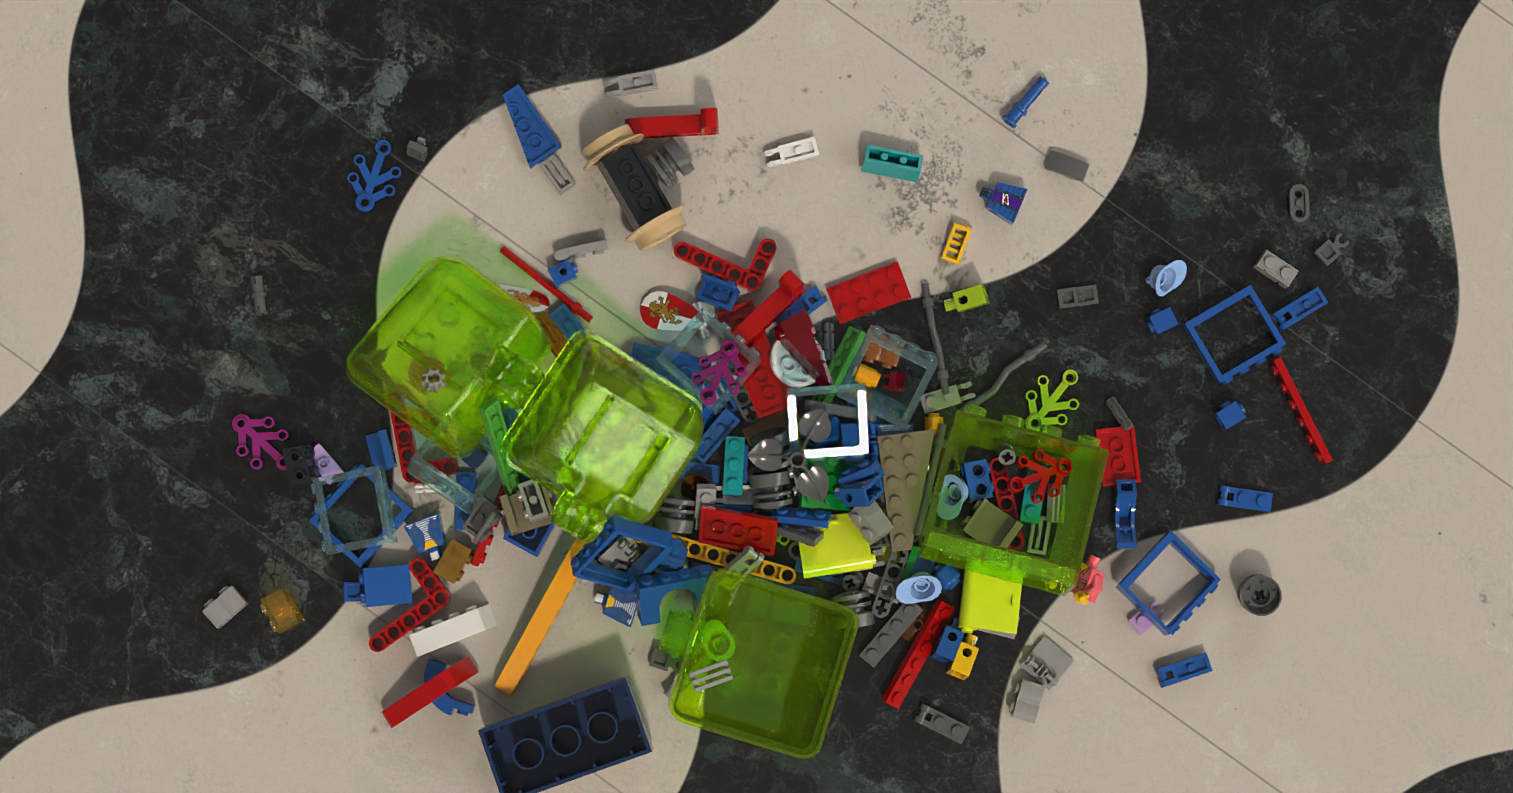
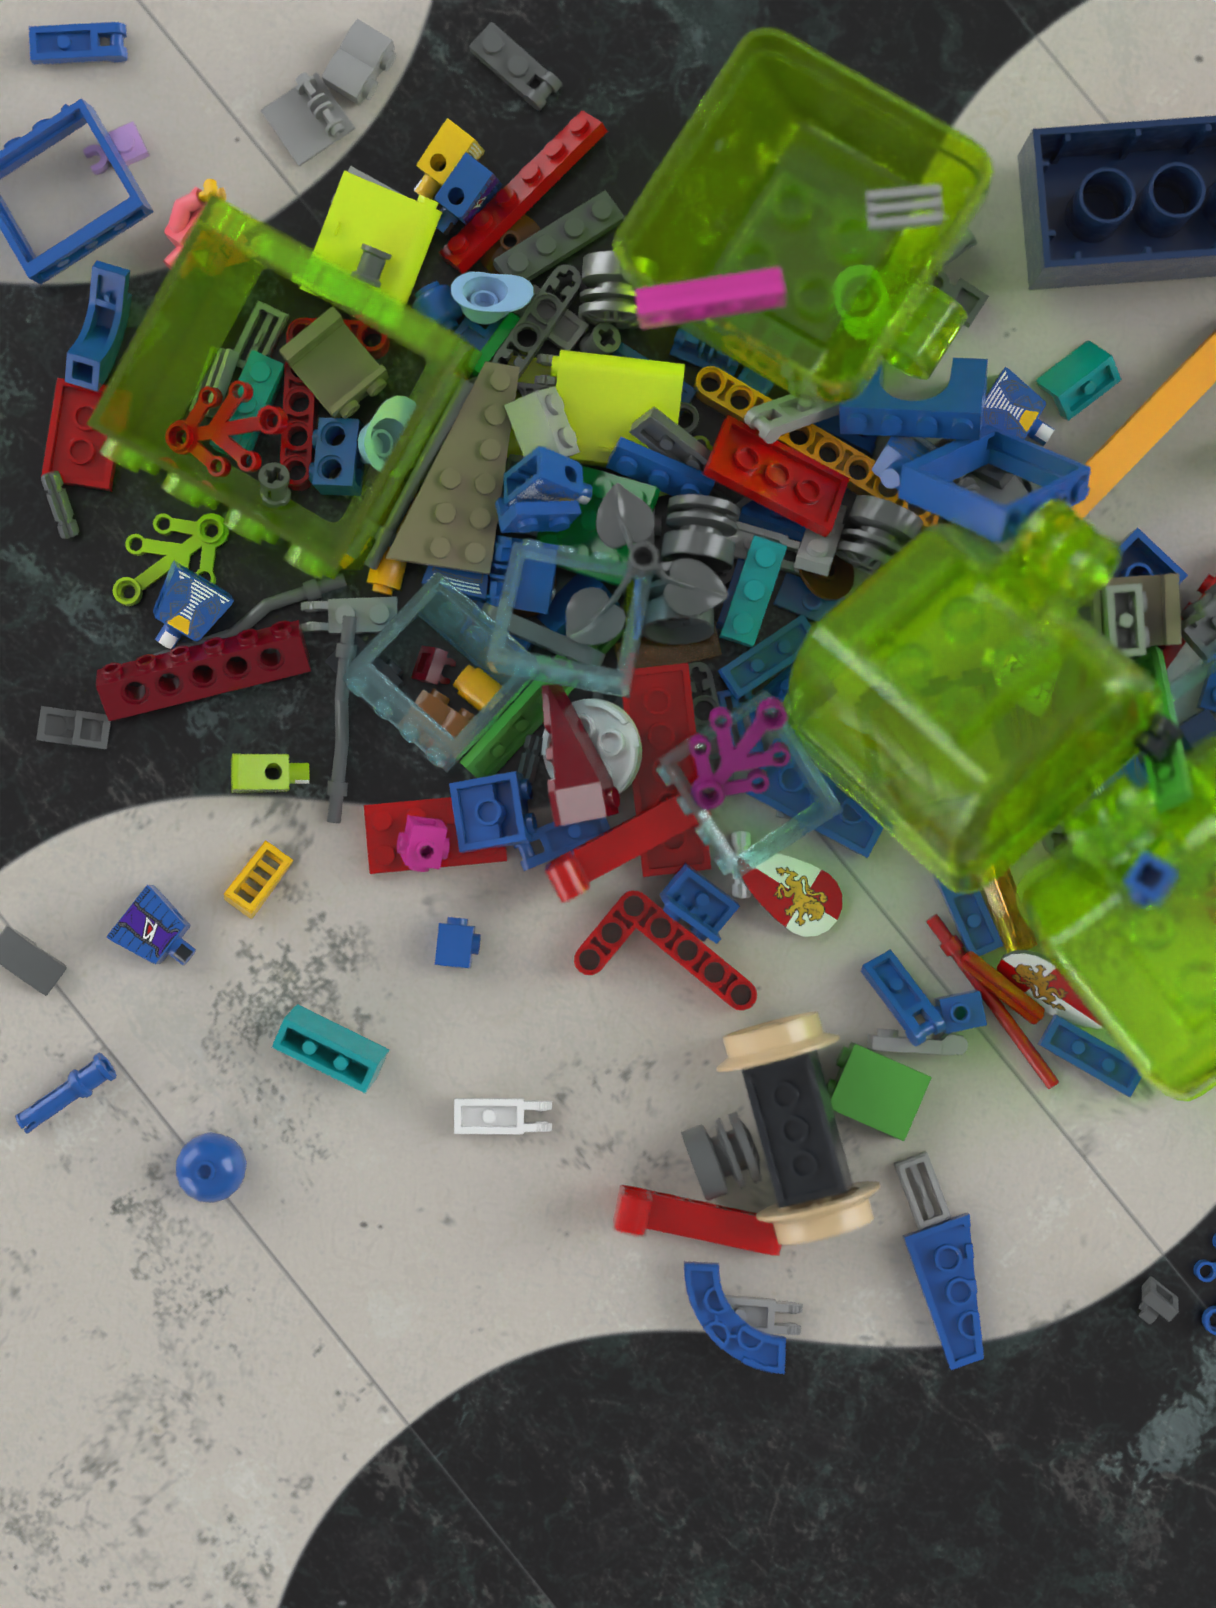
camera: 170 degrees left, 0 degrees up
(492, 356) = (1150, 881): none -> blue brick
(495, 271) = (1090, 1055): none -> blue plate
(501, 441) = (1158, 737): none -> black wheel
(543, 292) = (1001, 987): none -> red axle
(587, 634) = (1080, 379): none -> teal panel
(595, 272) = (903, 997): none -> blue plate
(596, 219) = (877, 1090): none -> bright green brick
(642, 74) = (726, 1326): none -> blue tile
(799, 601) = (710, 297): none -> dark pink fence
(840, 311) = (493, 811): none -> blue plate
(841, 237) = (456, 943): none -> blue brick
(872, 283) = (423, 843): none -> dark pink brick
(938, 84) = (211, 1167): none -> blue cylinder
(987, 585) = (371, 265): none -> dark grey bush
(1004, 351) = (190, 683): none -> dark red brick
(1034, 377) = (188, 605): none -> blue torso

